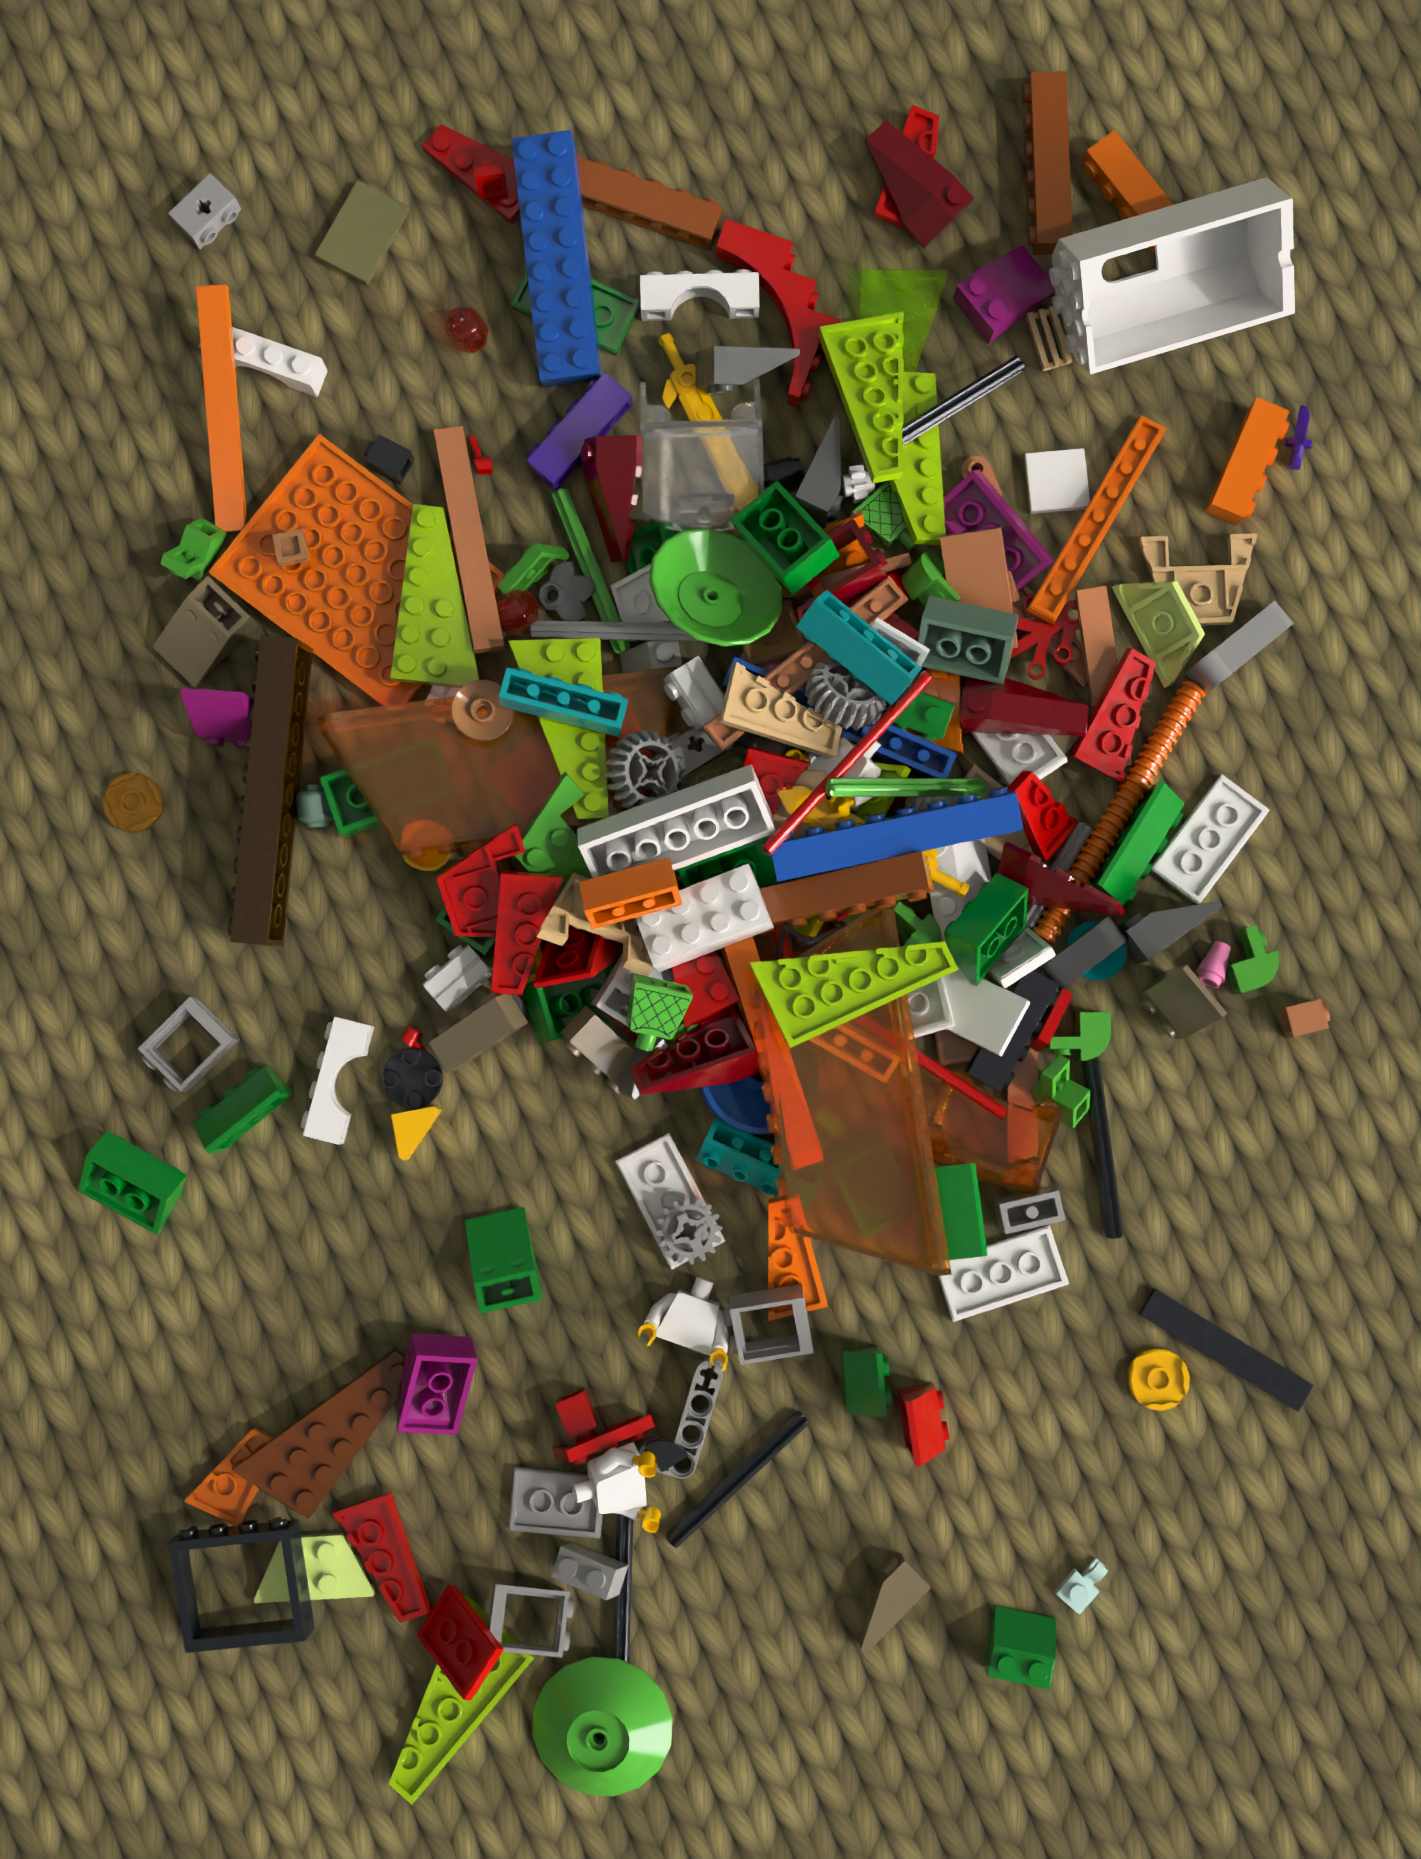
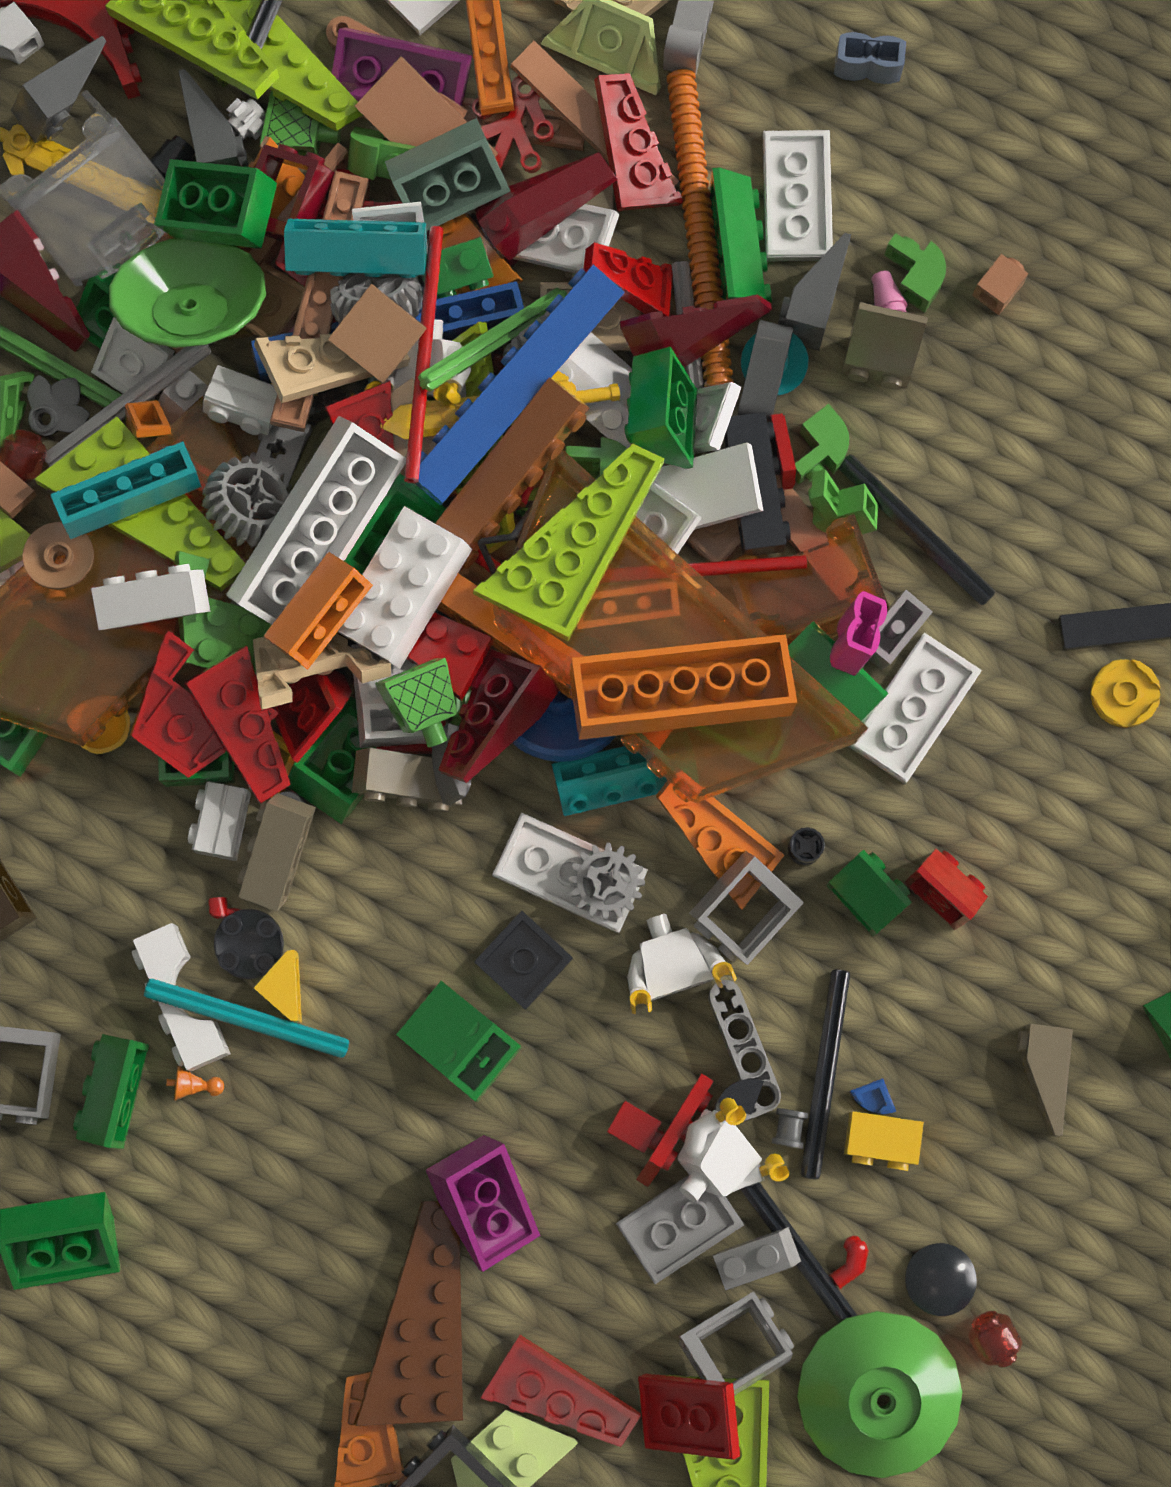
camera: 35 degrees left, 5 degrees down
(299, 1144) = (189, 1084): none -> orange piece
(370, 1131) = (246, 1018): none -> teal axle
(521, 793) = (150, 597): none -> white brick
(590, 1237) = (523, 960): none -> black plate
(619, 656) = (146, 419): none -> orange slope
(656, 1623) = (855, 1262): none -> red arm
(682, 1498) = (789, 1128): none -> dark grey bush
(705, 1681) = (940, 1279): none -> black dish
(710, 1753) = (995, 1339): none -> clear red head
(741, 1557) = (883, 1139): none -> yellow brick
(758, 1521) = (874, 1097): none -> blue tile
(824, 724) = (377, 333): none -> medium nougat tile
(842, 1148) = (682, 686): none -> orange brick
(850, 1315) = (810, 842): none -> black wheel
(998, 1199) = (858, 633): none -> dark pink brick
(1345, 787) = (872, 58): none -> sand blue brick

